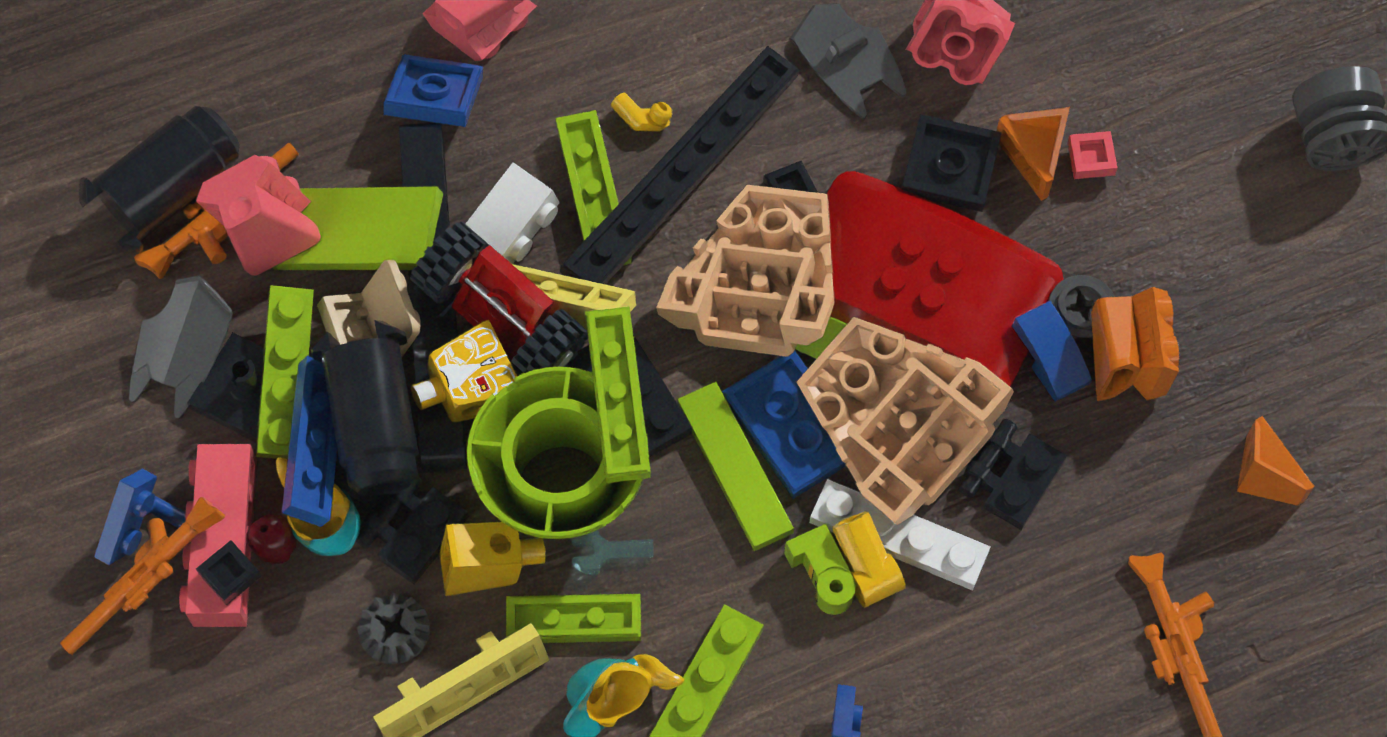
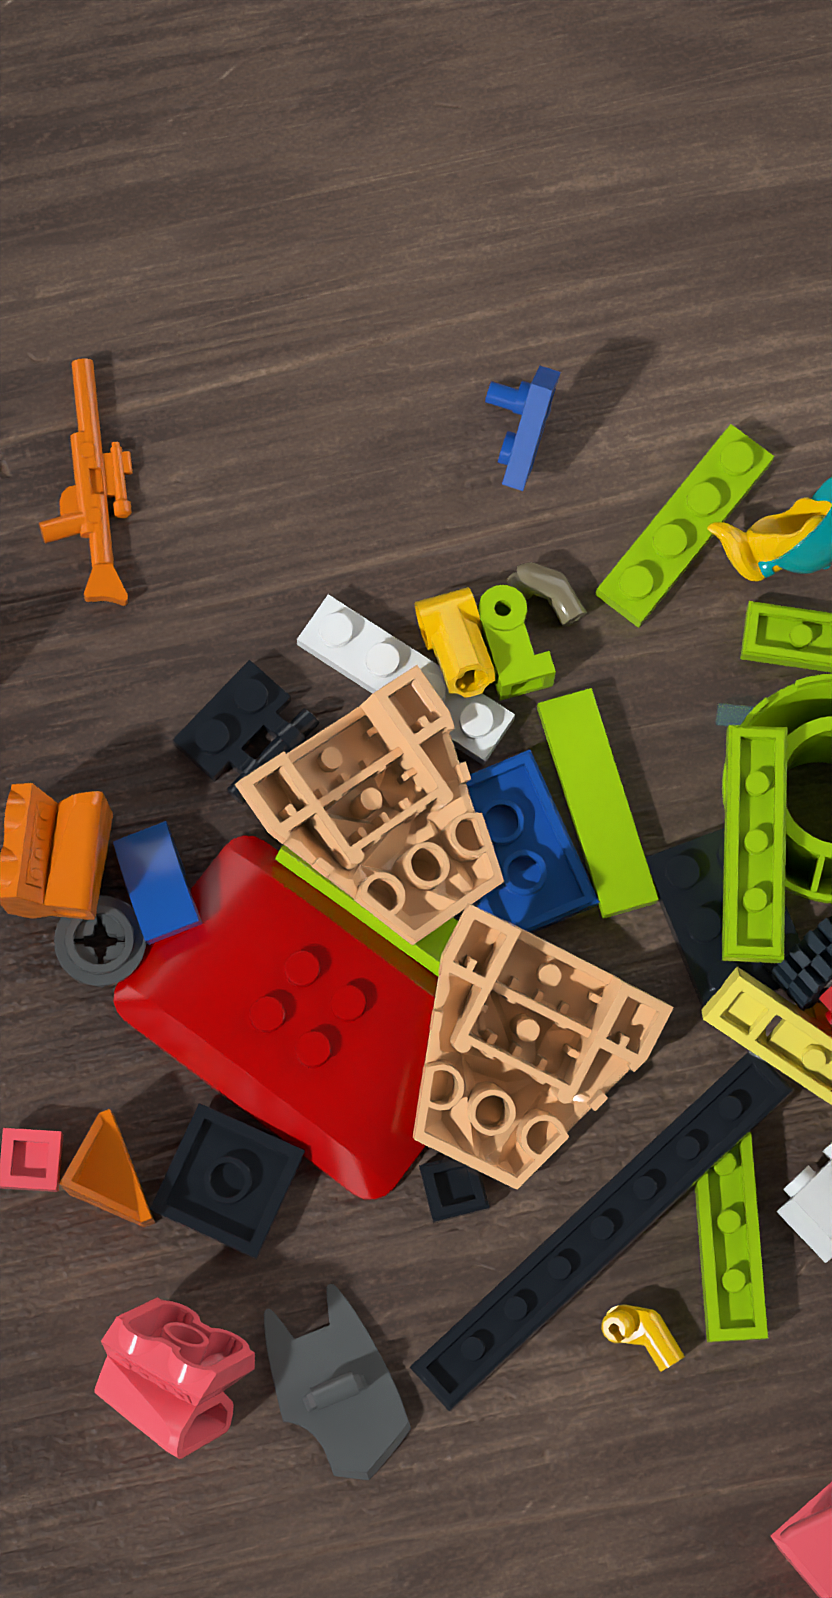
camera: 175 degrees left, 10 degrees up
(802, 624) = (551, 585): none -> dark tan arm

